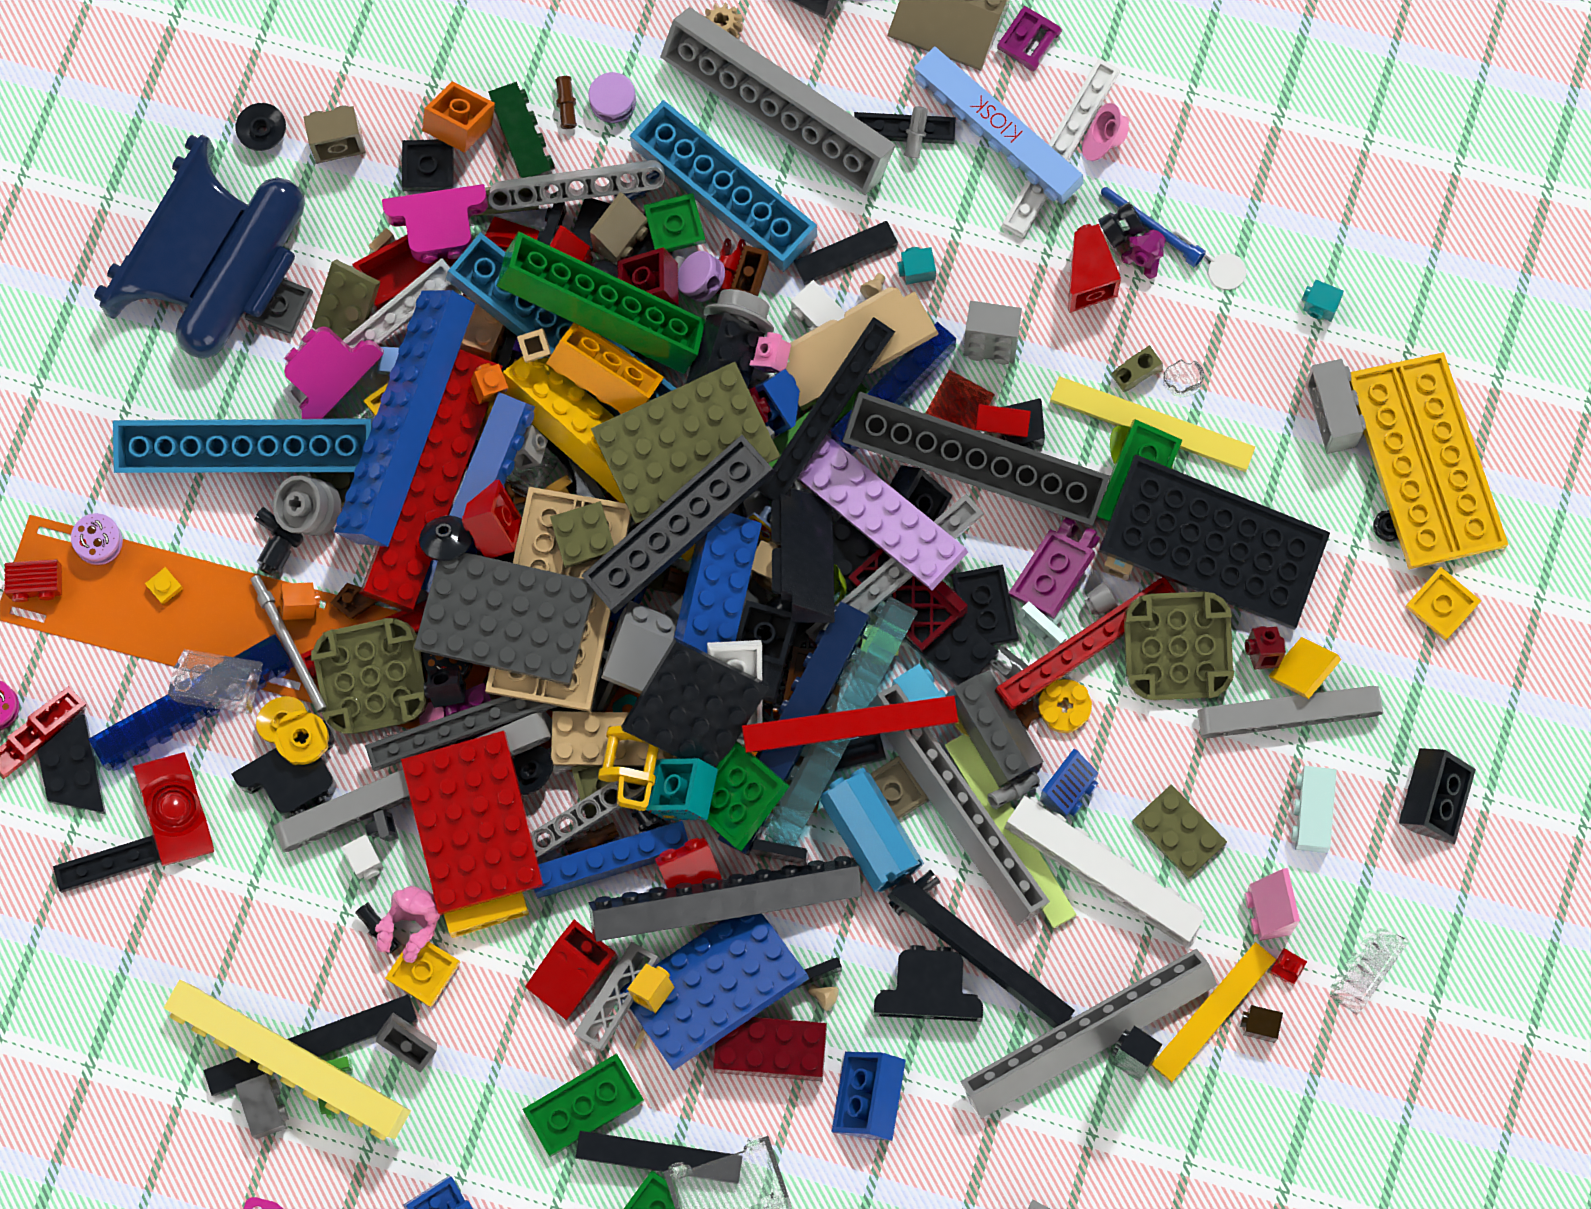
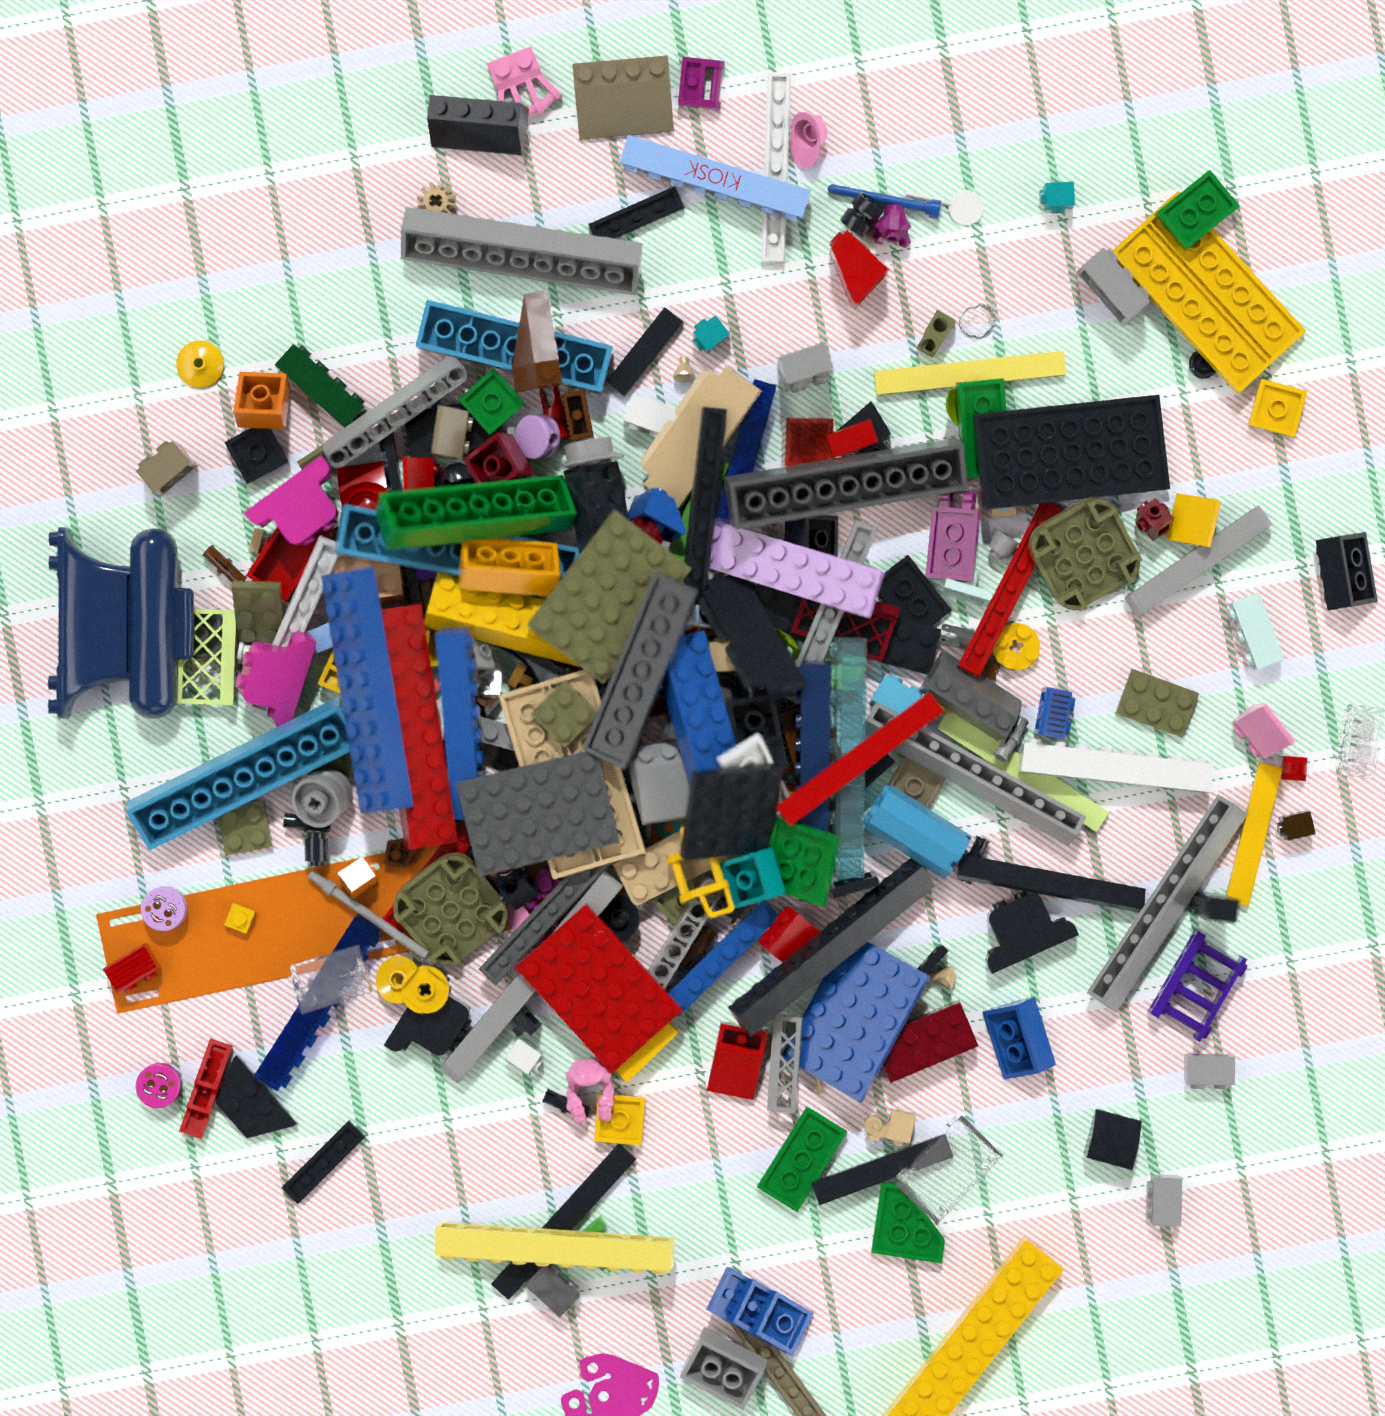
camera: 30 degrees left, 15 degrees up
(173, 809) = (351, 1093): red slope -> none
(218, 504) = (245, 828): none -> olive plate
(256, 117) = (89, 482): black dish -> none
(303, 322) = (228, 661): none -> yellowish green fence
(333, 238) = (213, 554): none -> reddish brown pin
(406, 1042) = (640, 1184): flat silver brick -> none
(420, 74) = (210, 370): none -> yellow dish
(445, 546) = (464, 779): black dish -> none
(487, 382) = (421, 628): orange brick -> none
(493, 521) = (487, 741): red slope -> none
(534, 345) = (442, 579): tan brick -> none
(566, 102) = (342, 338): reddish brown pin -> none
(612, 97) = (379, 314): lavender head -> none
(651, 987) = (810, 1045): yellow brick -> none
(696, 1124) = (897, 1128): none -> tan brick
(741, 193) = (536, 352): none -> reddish brown wedge
(771, 353) = (633, 477): bright pink brick -> none
(916, 132) = (650, 219): light grey axle -> none
(1055, 1123) = (1173, 985): none -> dark purple fence
(1453, 376) = (1197, 210): none -> green plate

